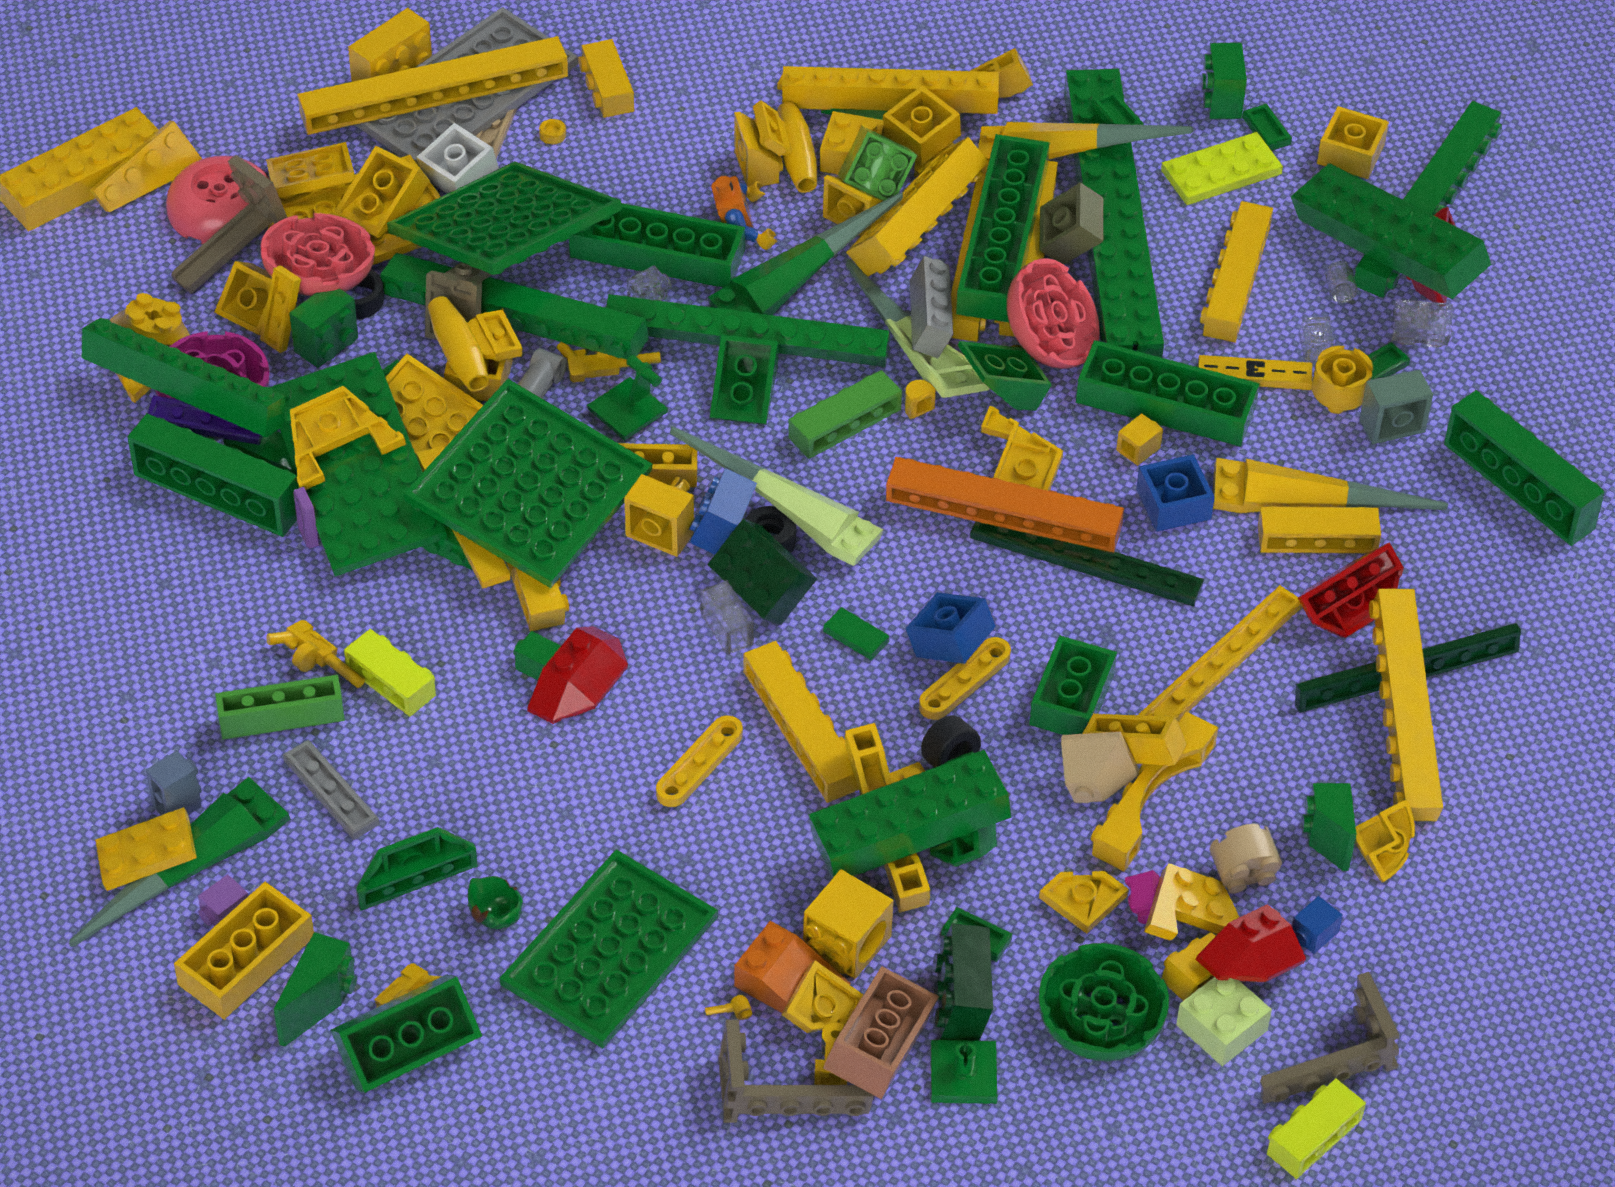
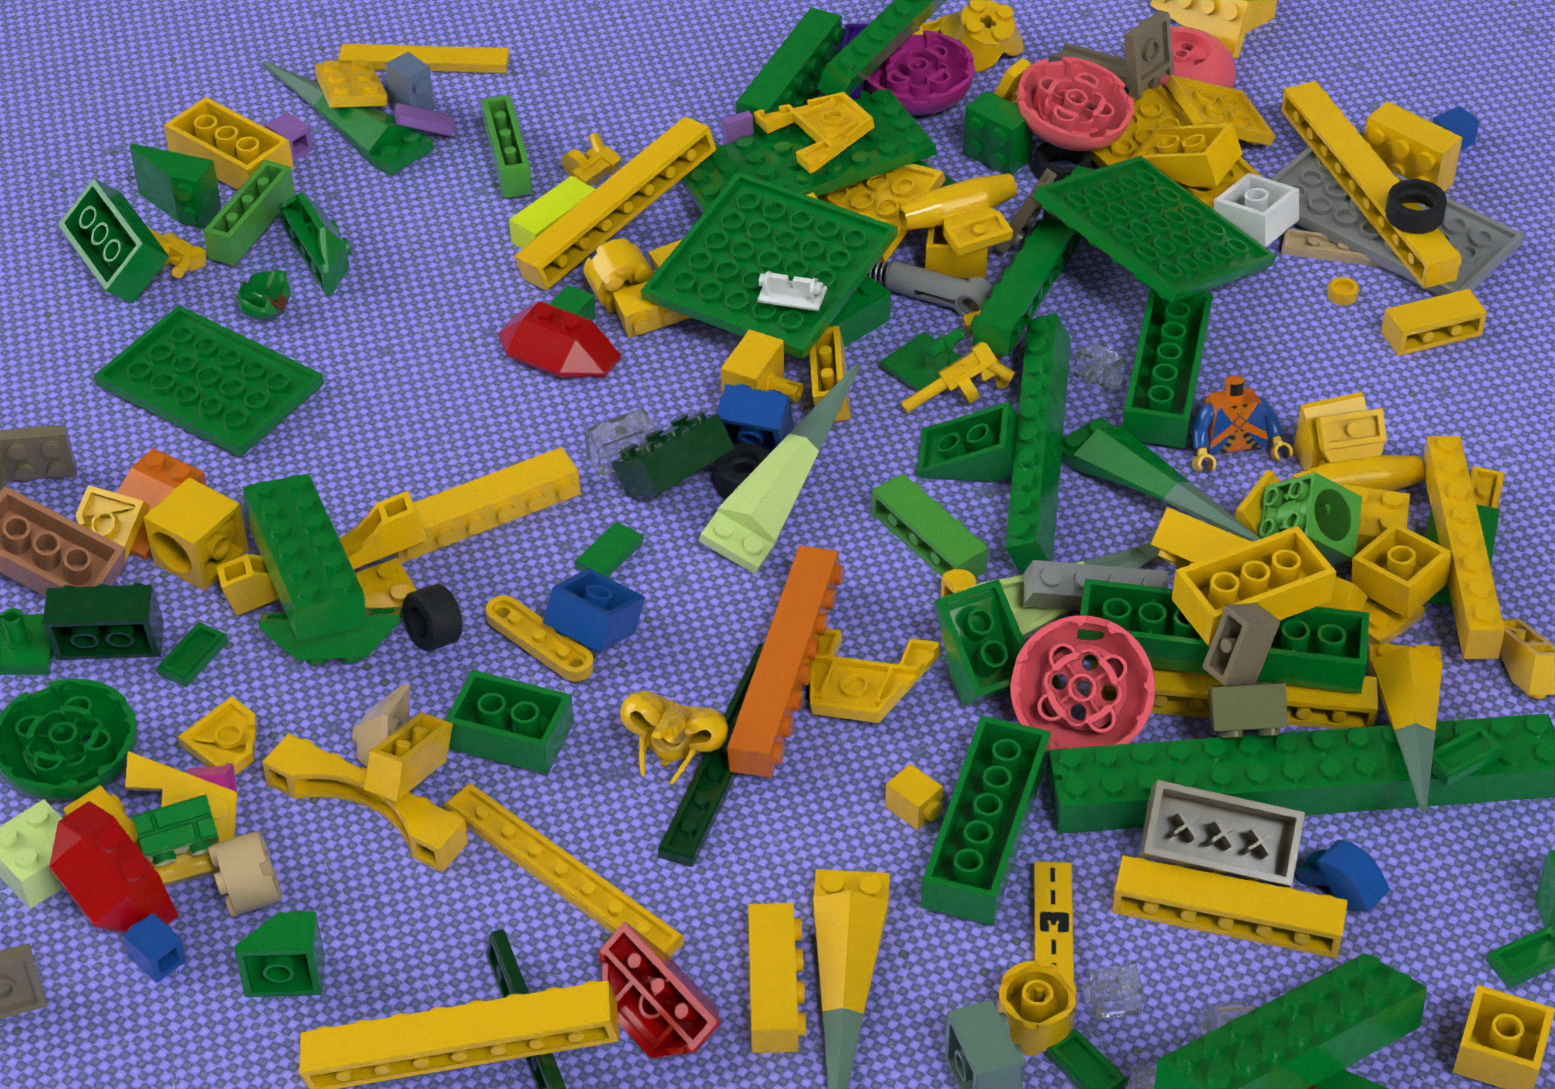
camera: 90 degrees right, 5 degrees down
(89, 796) = (436, 57): none -> yellow tile
(217, 782) = (424, 119): none -> medium lavender tile
(331, 789) = (421, 196): light grey tile -> none
(348, 26) = (1461, 123): none -> blue brick
(363, 922) = (248, 213): none -> bright green brick
(400, 609) = (615, 203): none -> yellow brick
(497, 34) = (1418, 192): none -> black tyre
(501, 612) = (616, 268): none -> yellow brick
(588, 458) = (799, 293): none -> white hinge
(671, 377) = (959, 374): none -> yellow piece
(699, 761) = (435, 433): yellow plate -> none
(738, 1005) = (122, 472): yellow hand -> none
(989, 182) = (1276, 572): none -> yellow brick
(1050, 196) = (1241, 644): none -> dark tan brick
(1084, 563) = (672, 729): none -> yellow hair
(1175, 493) = (818, 822): blue brick -> none
(1191, 257) = (1221, 834): none -> dark tan brick
(1210, 201) = (1348, 873): none -> blue brick
(1217, 893) = (176, 830): none -> green brick
(1221, 168) = (1437, 904): neon yellow plate -> none
(1386, 839) = (269, 1024): yellow brick -> none

